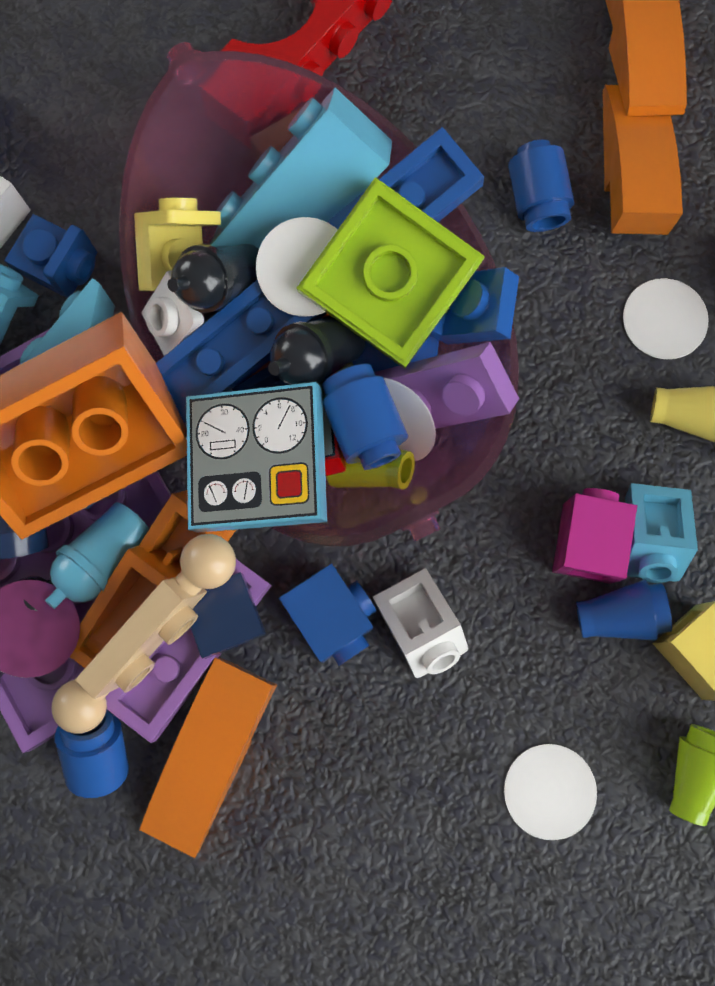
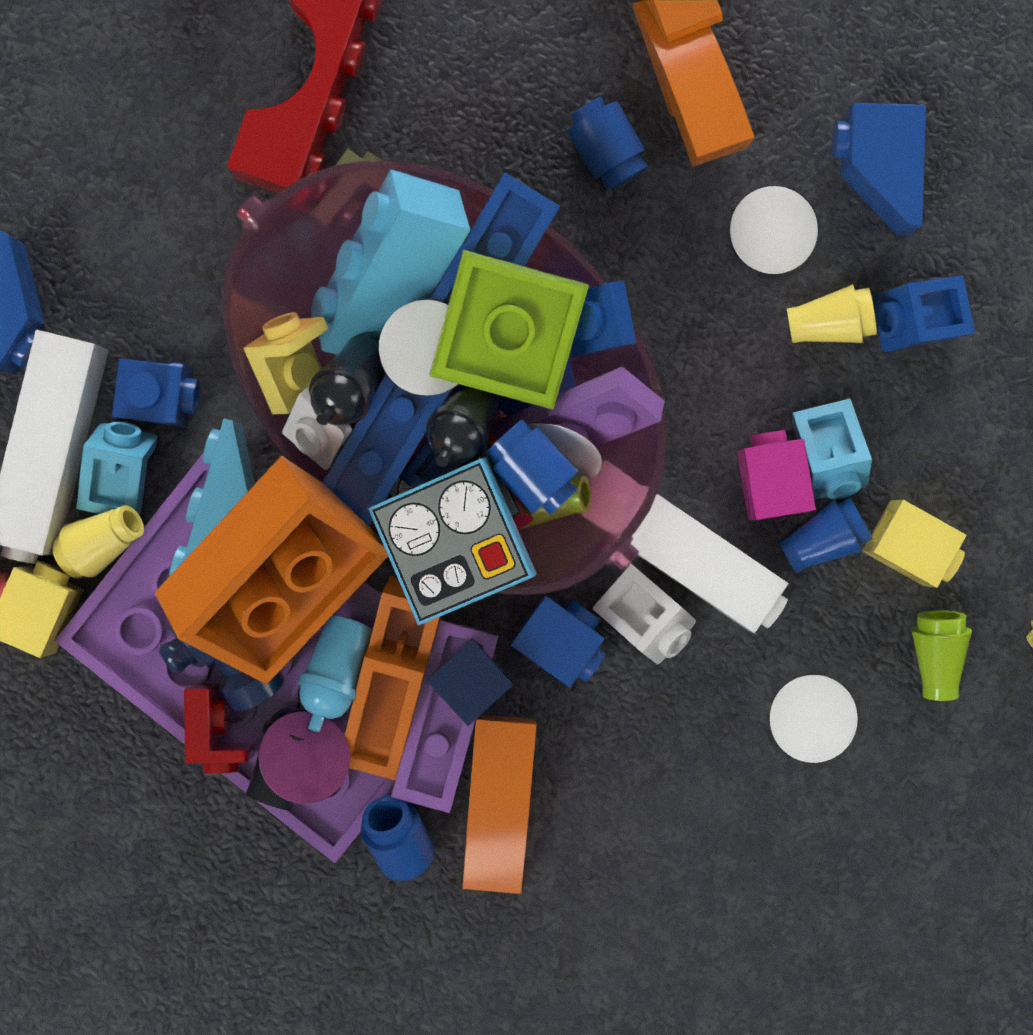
camera: 20 degrees left, 10 degrees up
(163, 616) = (444, 649): tan plate -> none
(496, 591) = (709, 566): none -> white brick

